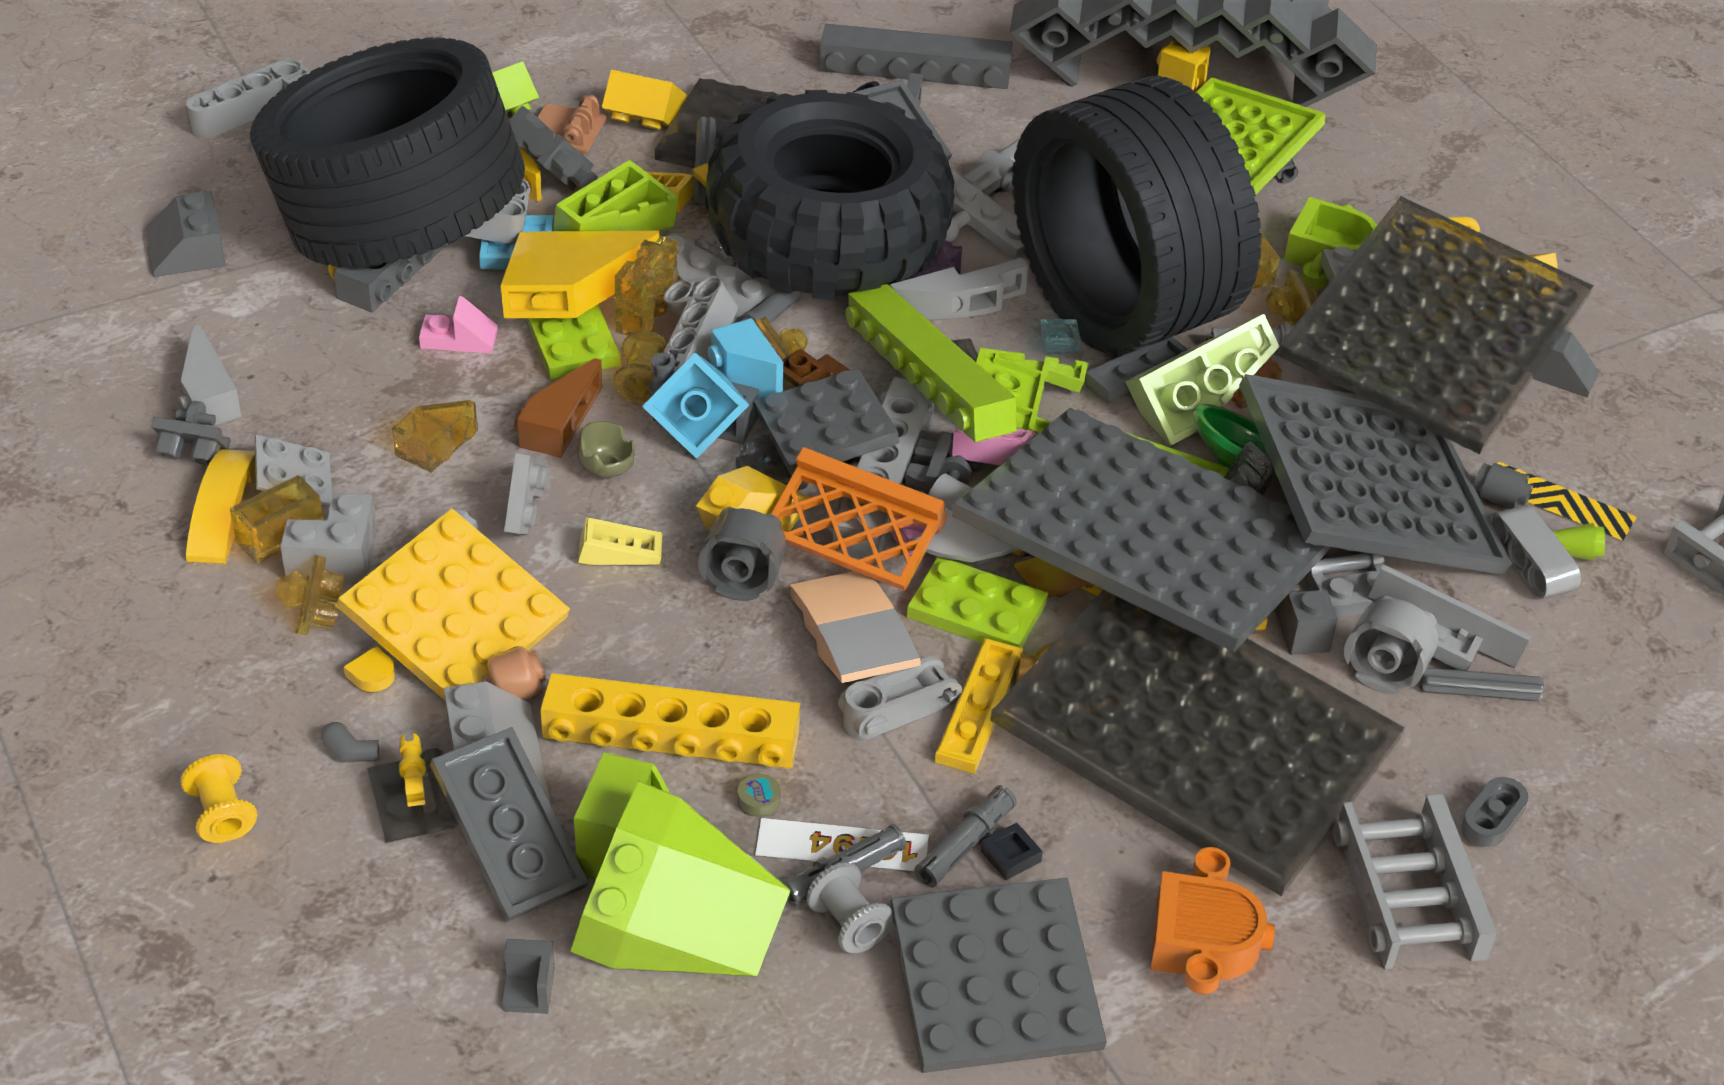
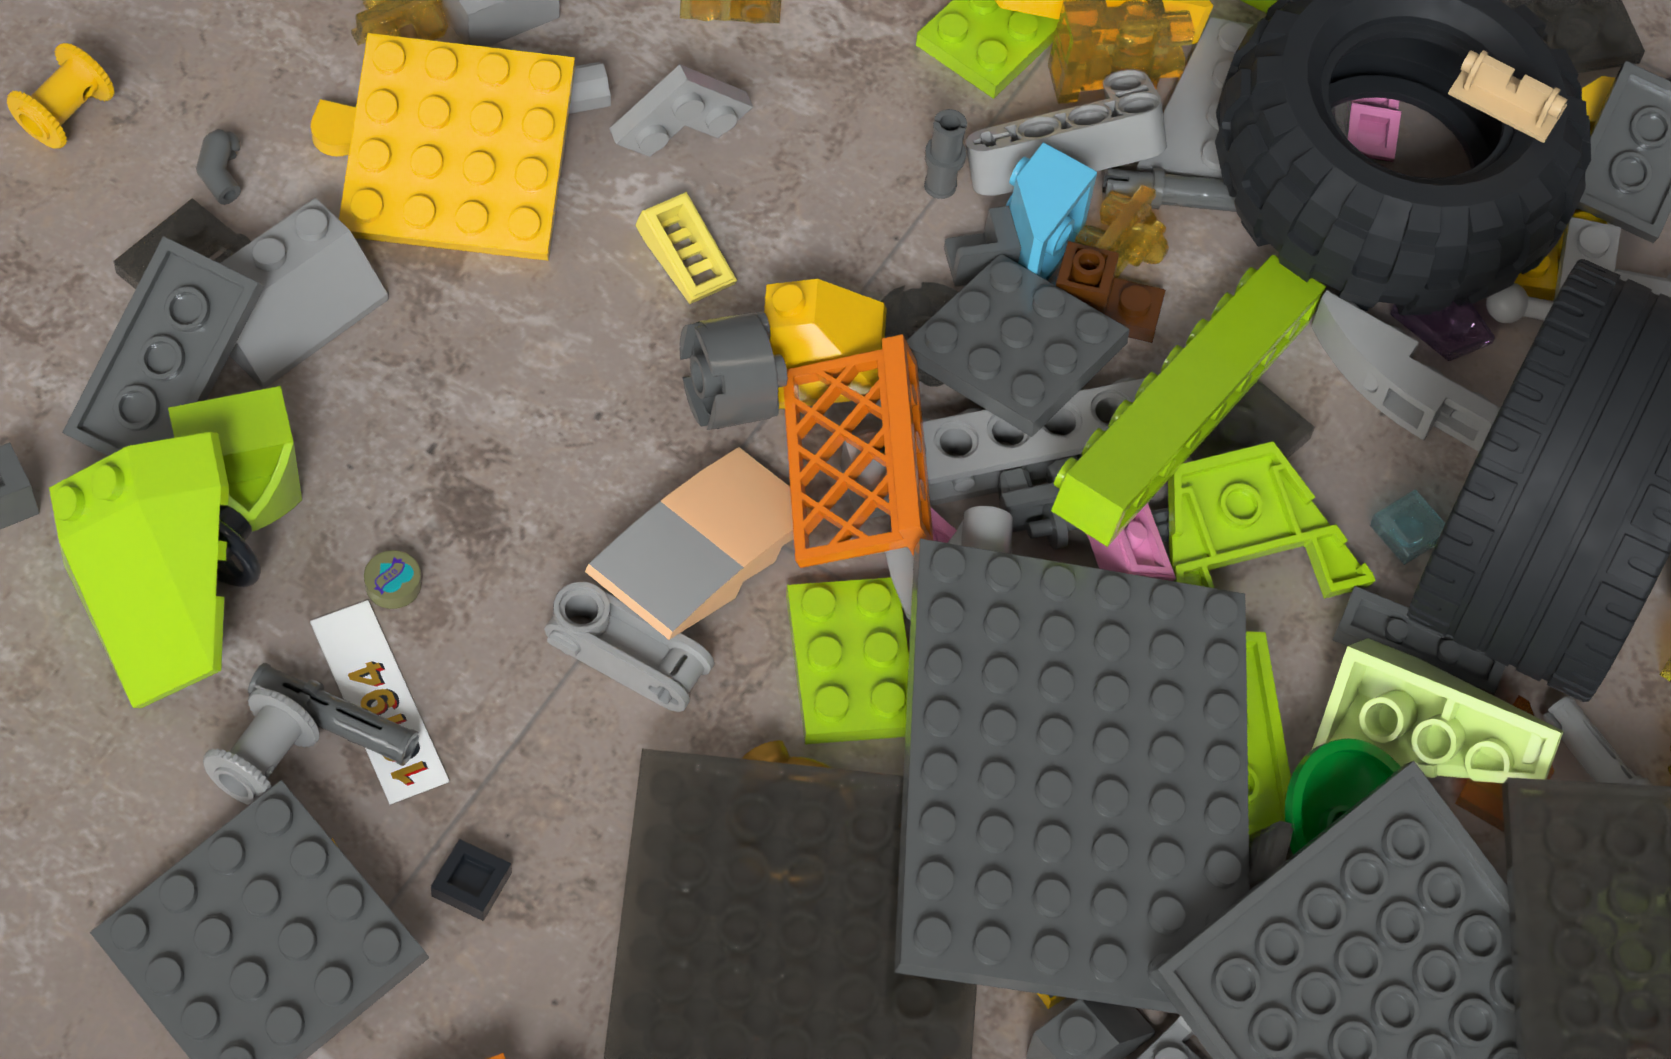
camera: 55 degrees right, 15 degrees up
(412, 769) = (198, 232): yellow piece -> none
(516, 672) = (405, 255): nougat head -> none
(558, 410) = (852, 77): dark orange slope -> none
(604, 449) = (815, 152): olive hair -> none
(634, 379) = (1001, 107): clear yellow hose -> none
(670, 720) = (398, 324): yellow brick -> none
(696, 404) = (941, 198): medium azure slope -> none
(860, 118) = (1518, 103): none -> tan hinge
(970, 721) = (729, 729): yellow tile -> none
(977, 824) = (460, 819): dark grey pin -> none

